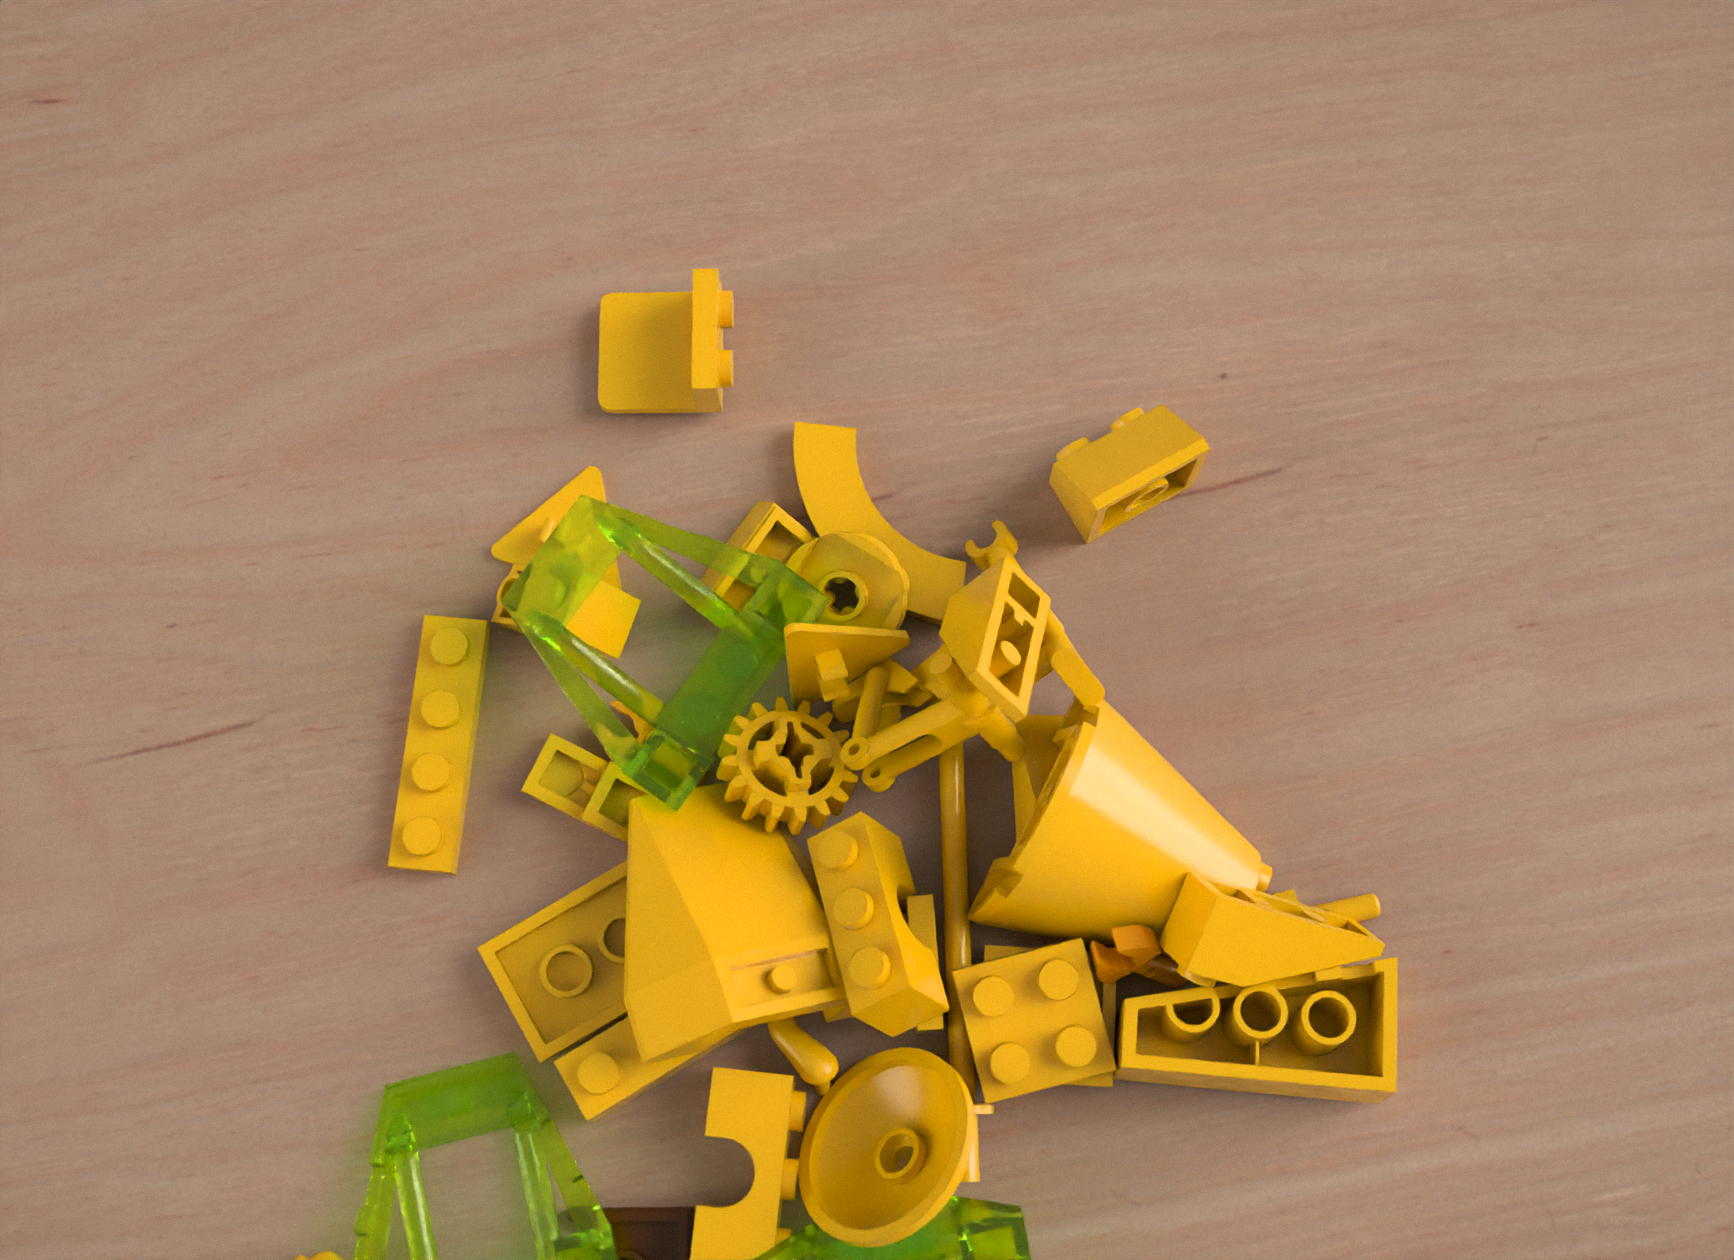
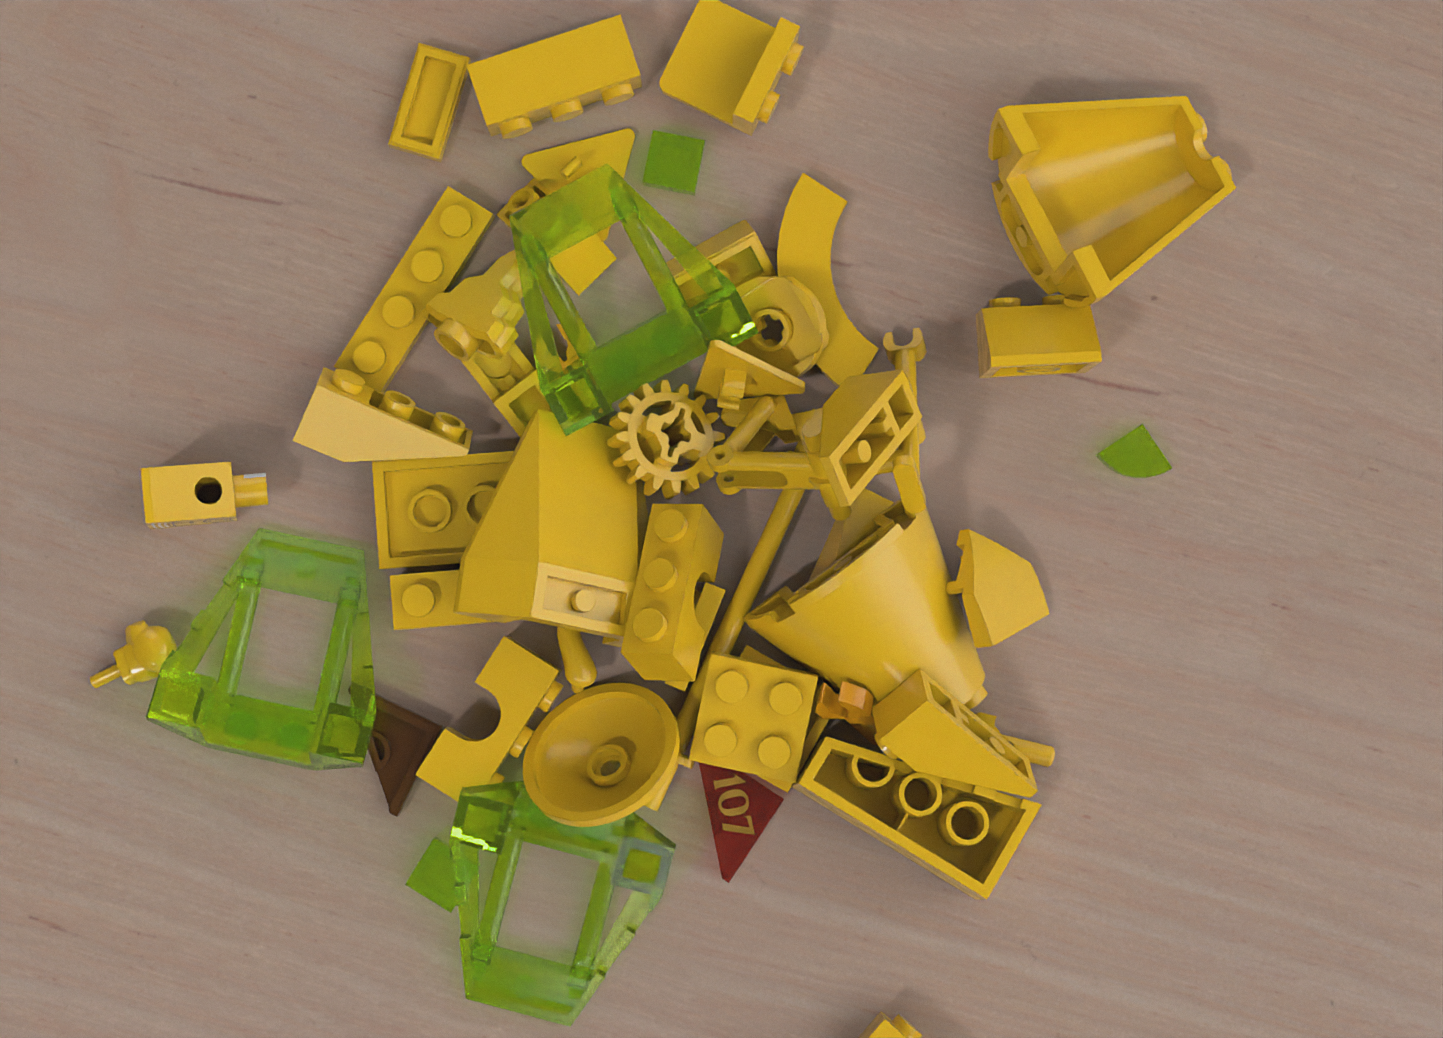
camera: 15 degrees right, 10 degrees up
(268, 1086) = (173, 491): none -> yellow torso
(365, 540) = (429, 102): none -> yellow tile
(447, 910) = (368, 425): none -> yellow slope
(486, 448) = (555, 77): none -> yellow brick
(519, 728) = (479, 312): none -> yellow rock
(654, 477) = (673, 162): none -> clear neon green tile
(1069, 1138) = (737, 812): none -> clear red tile
(1108, 286) = (1100, 187): none -> yellow cone
(1224, 748) = (996, 590): none -> yellow slope
(1291, 543) = (1135, 455): none -> clear neon green tile

